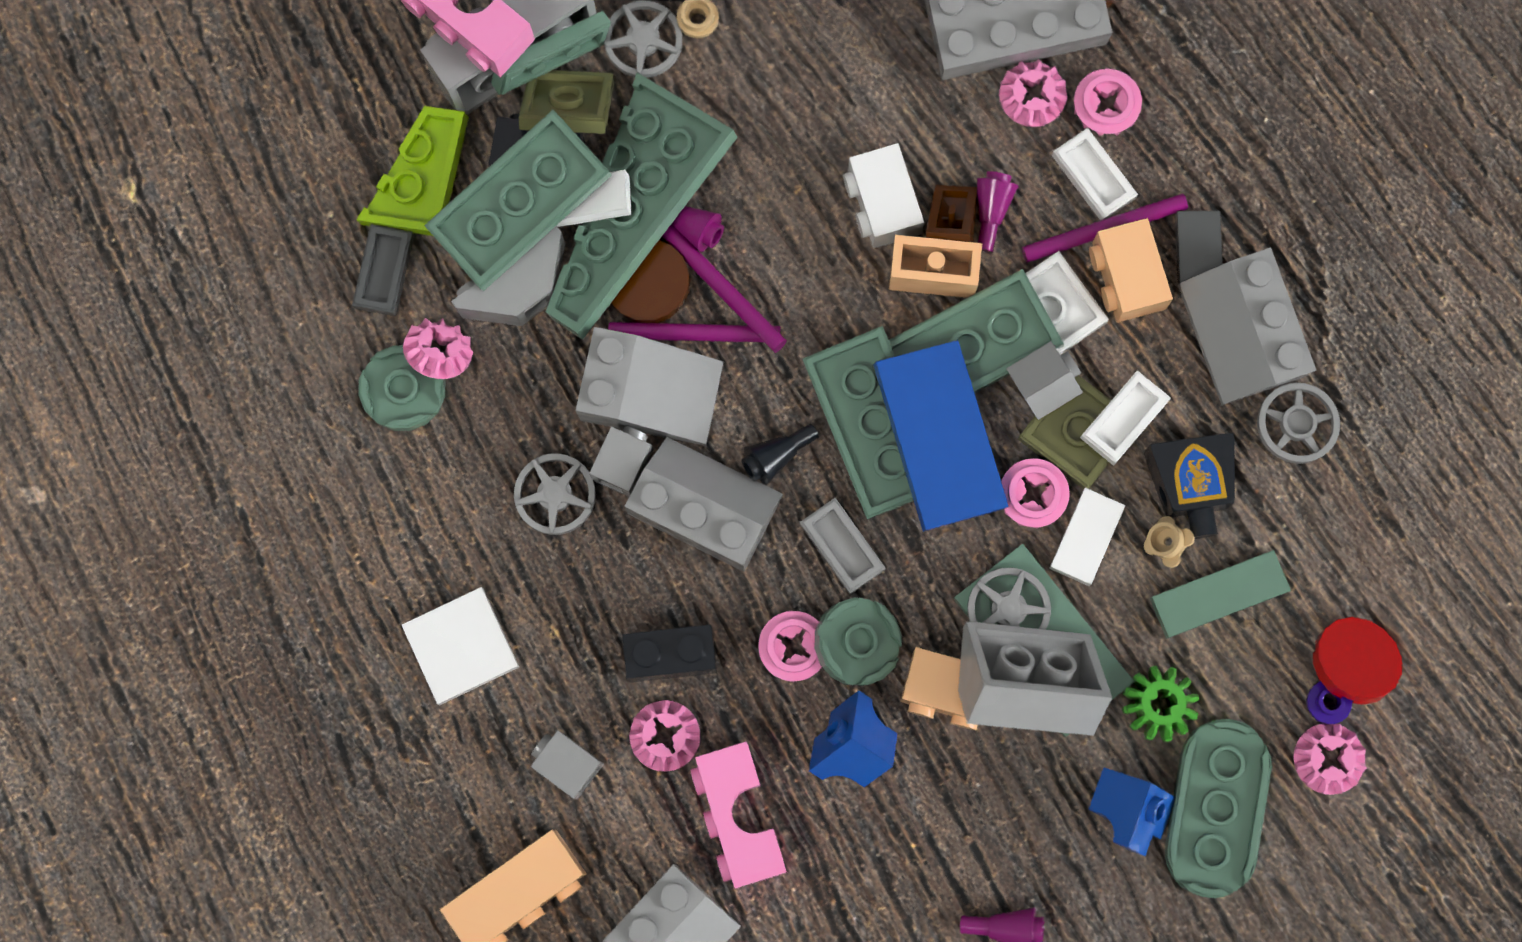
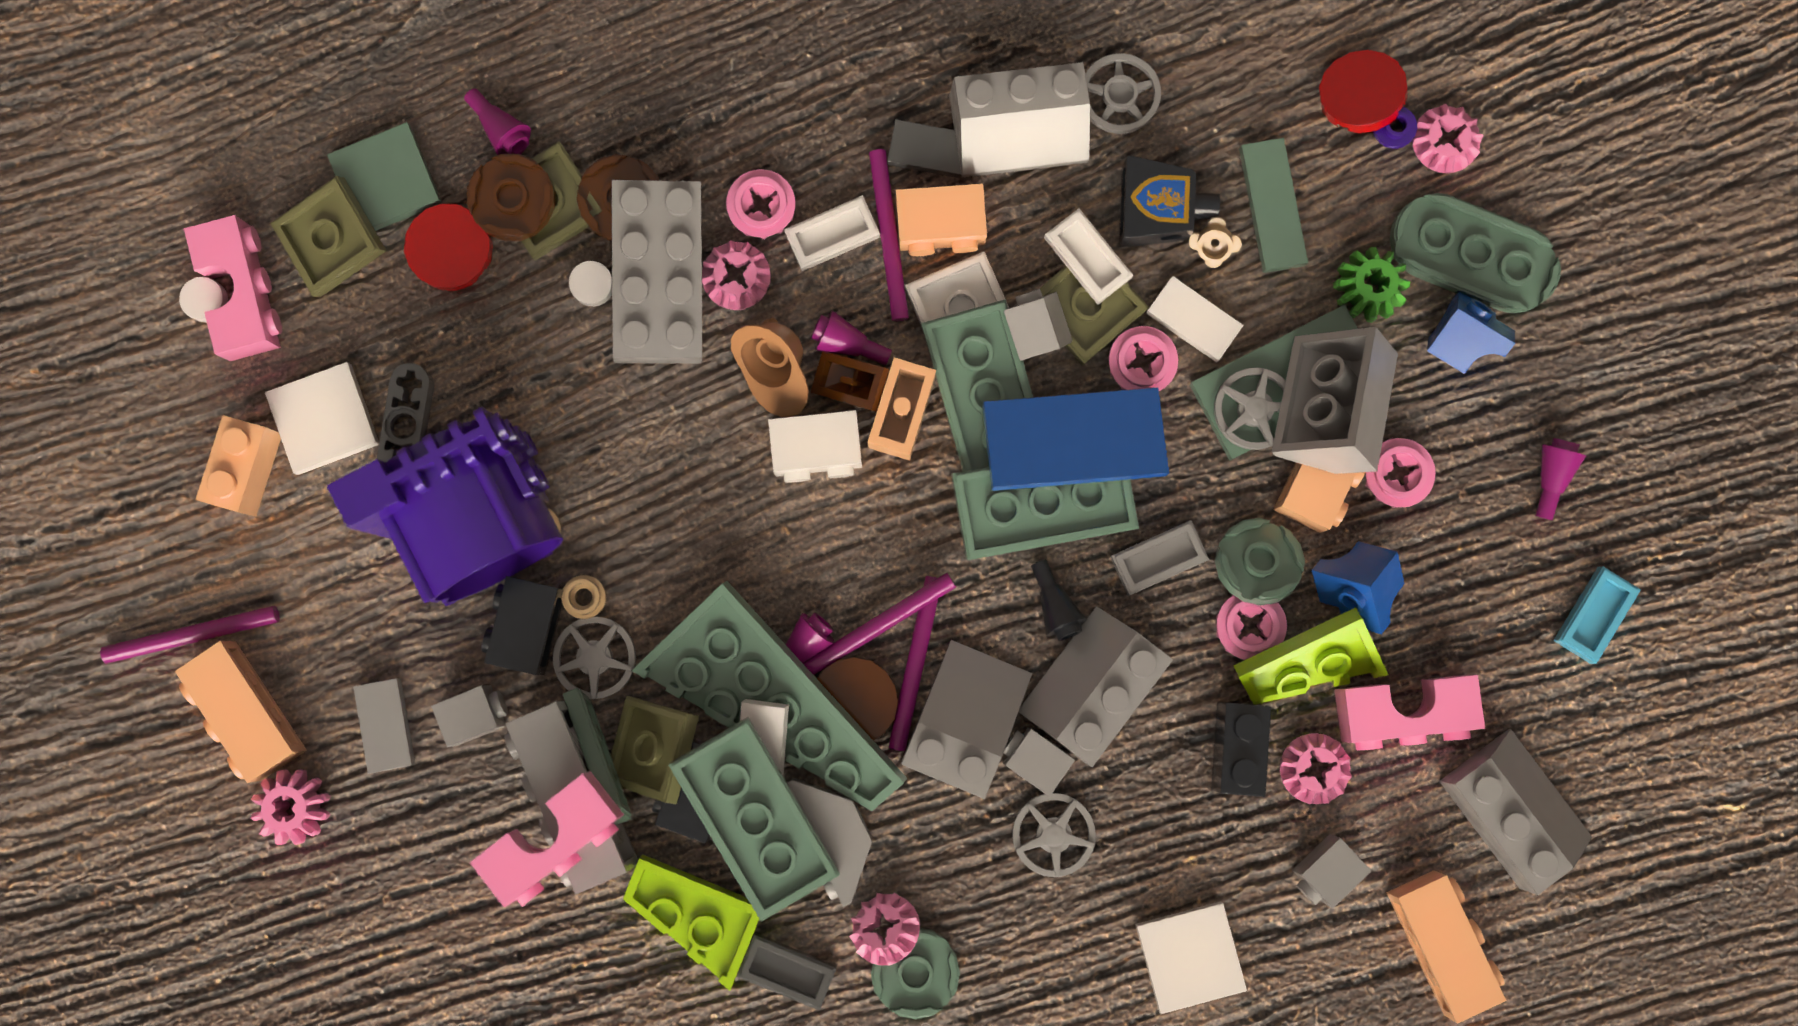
camera: 85 degrees left, 5 degrees up
(778, 717) = (1317, 656): none -> lime wing
(954, 140) = (771, 365): none -> medium nougat piece
(980, 747) = (1417, 482): none -> bright pink gear

